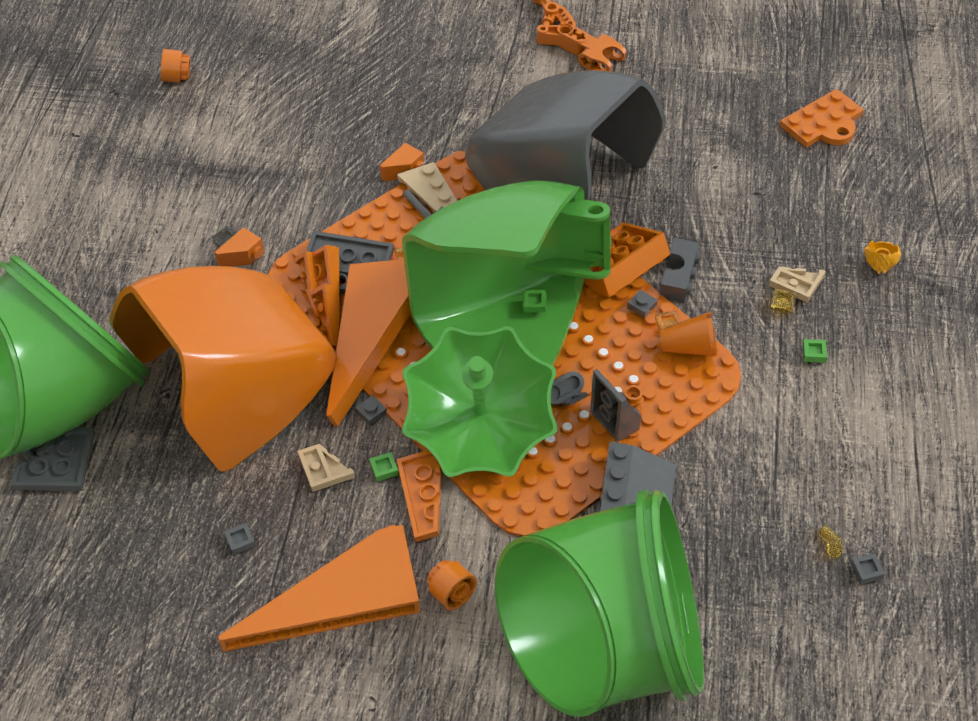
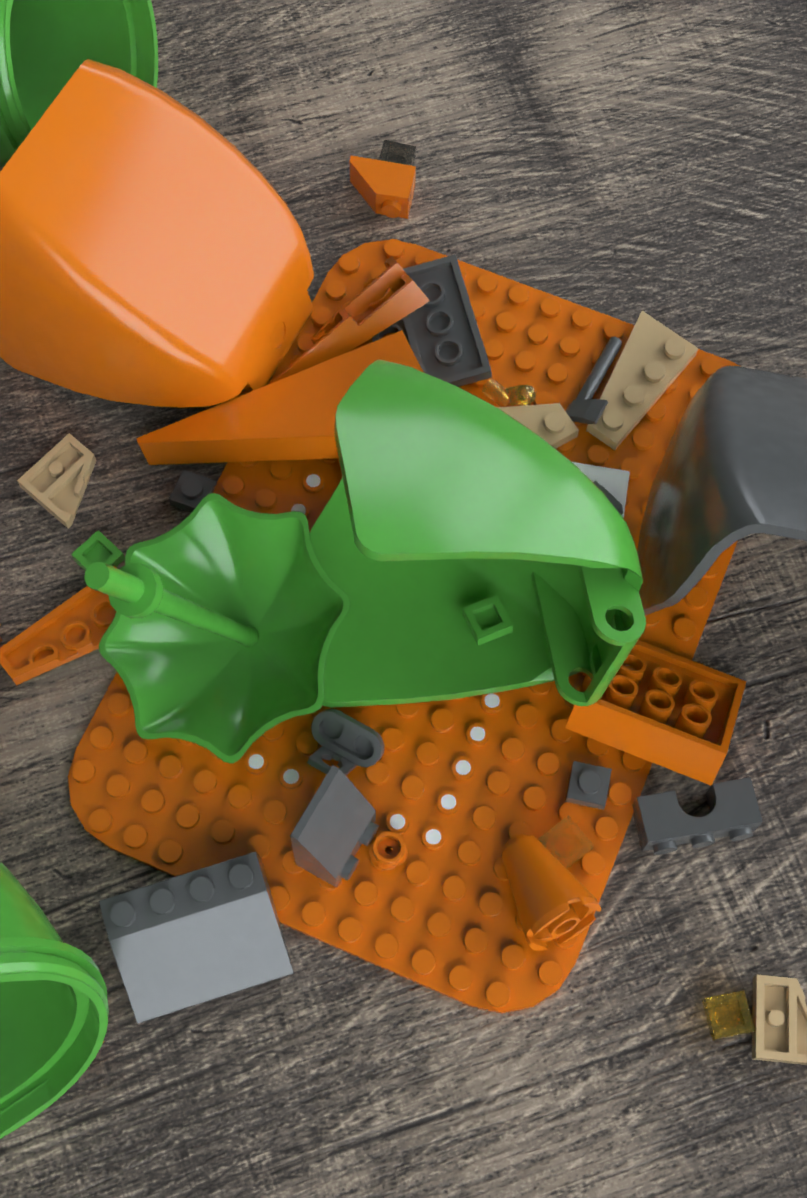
camera: 60 degrees right, 15 degrees up
(400, 161) = (675, 306): orange slope -> none
(814, 351) = (645, 1112): bright green plate -> none

